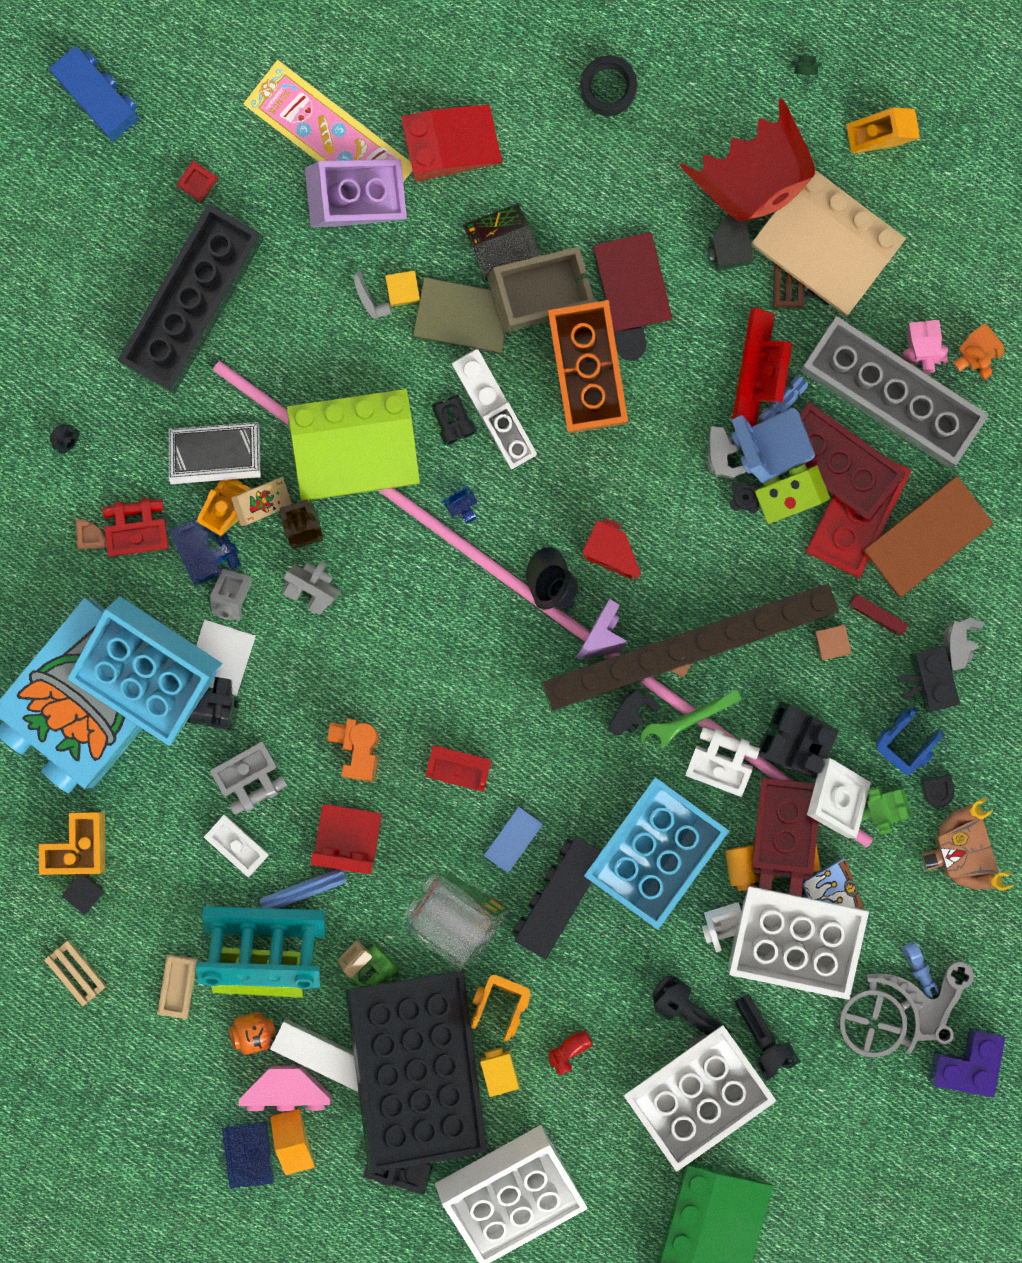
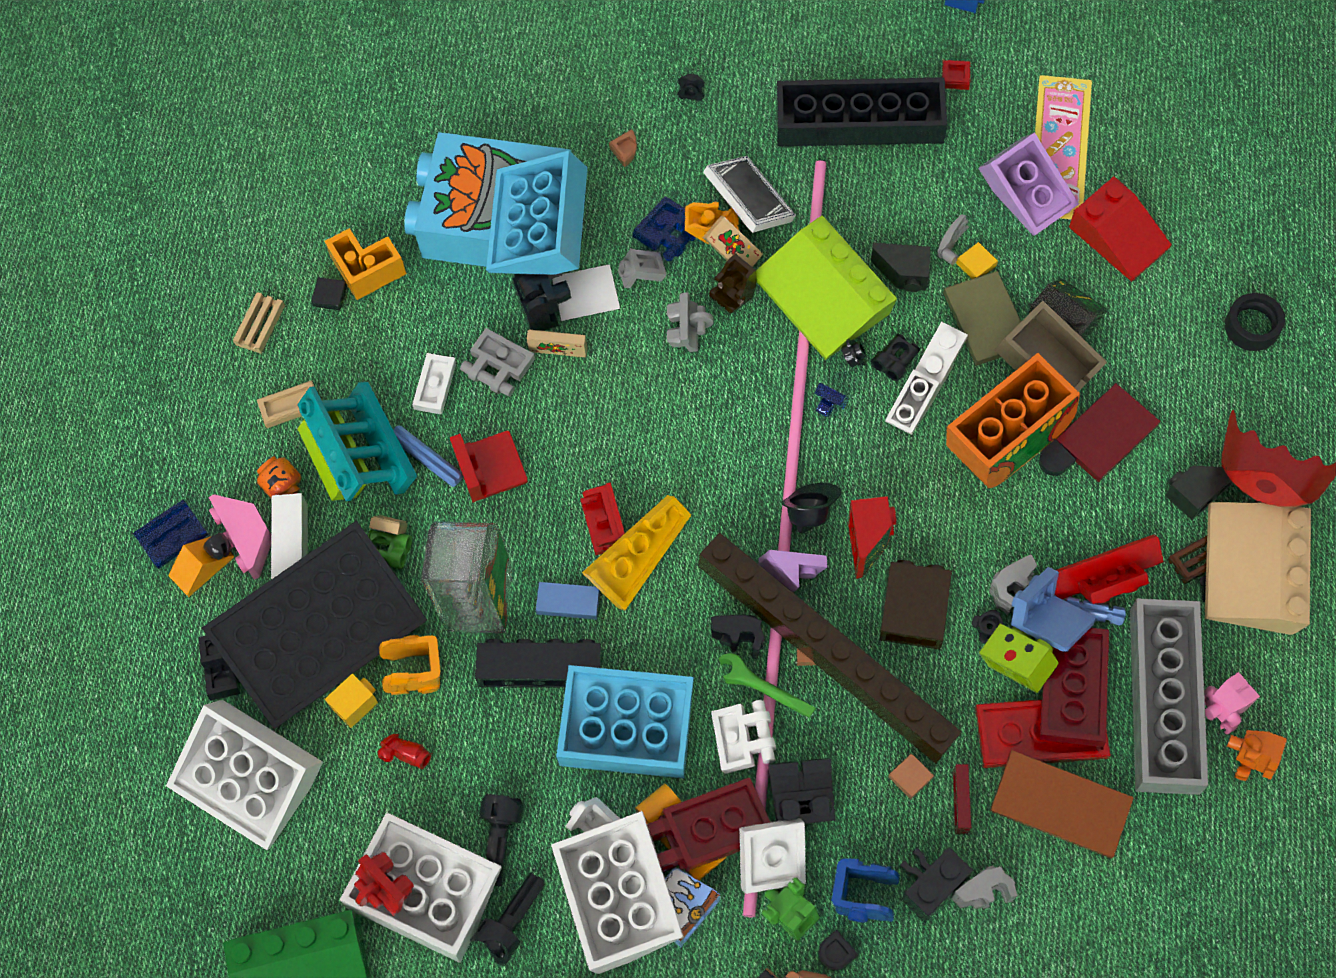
camera: 60 degrees right, 20 degrees down
(138, 536) = (646, 179): red plate -> none
(262, 714) = (557, 343): none -> tan tile
(293, 1120) = (217, 546): none -> black hinge
(360, 740) = (571, 430): orange hips -> none
(370, 357) = (903, 265): none -> pearl dark grey slope
(430, 455) = (854, 353): none -> black plate
(510, 759) = (633, 557): none -> yellow wing
(692, 547) = (915, 604): none -> dark brown brick
(701, 1128) = (377, 887): none -> red hips

